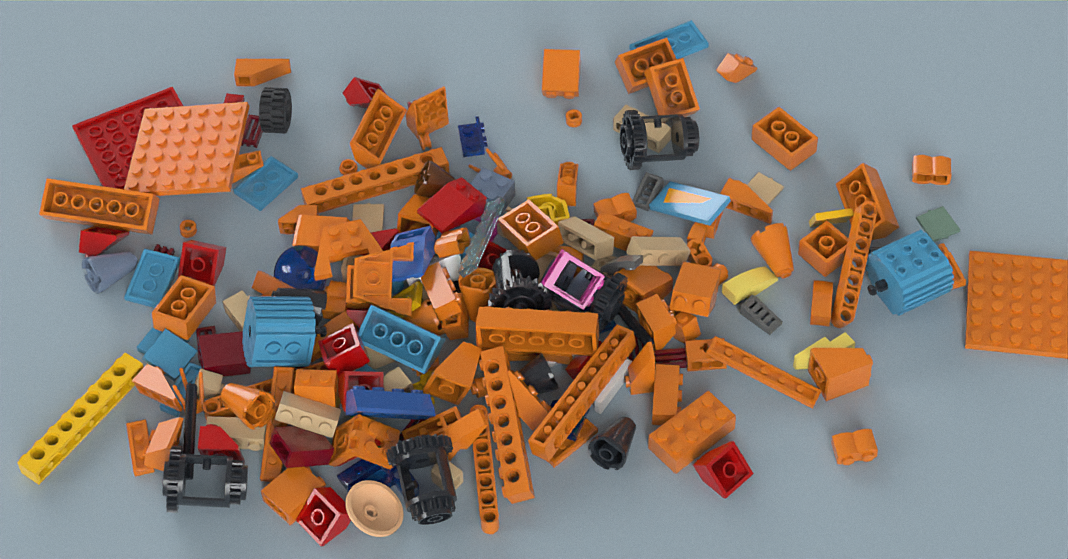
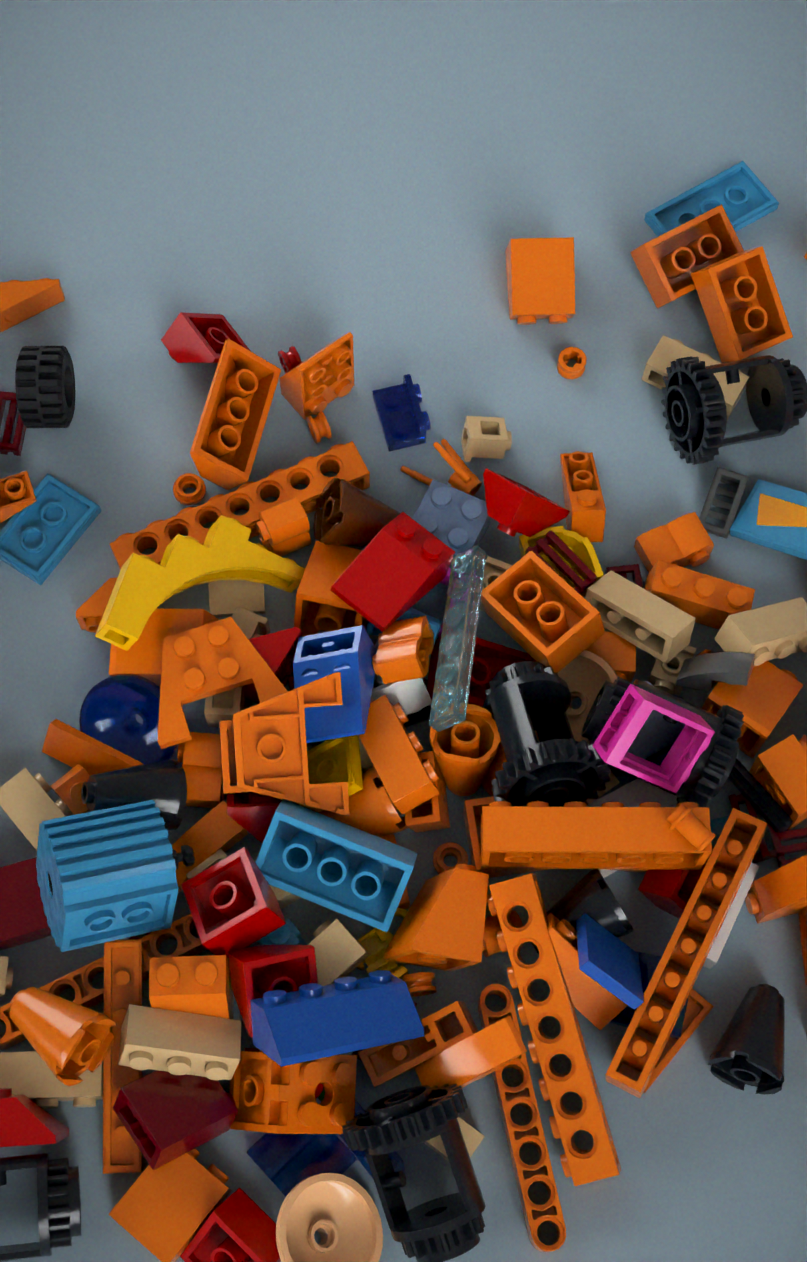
camera: 10 degrees left, 15 degrees up
(343, 196) = (187, 563): none -> yellow arch
(397, 187) = (284, 528): none -> orange brick
(440, 405) = (420, 983): none -> orange bush
(517, 151) = (485, 438): none -> tan brick
(528, 182) = (518, 506): none -> red slope
(538, 391) = (609, 961): none -> blue tile
(543, 199) = (553, 540): none -> dark red tile
(585, 319) = (690, 827): none -> orange pin

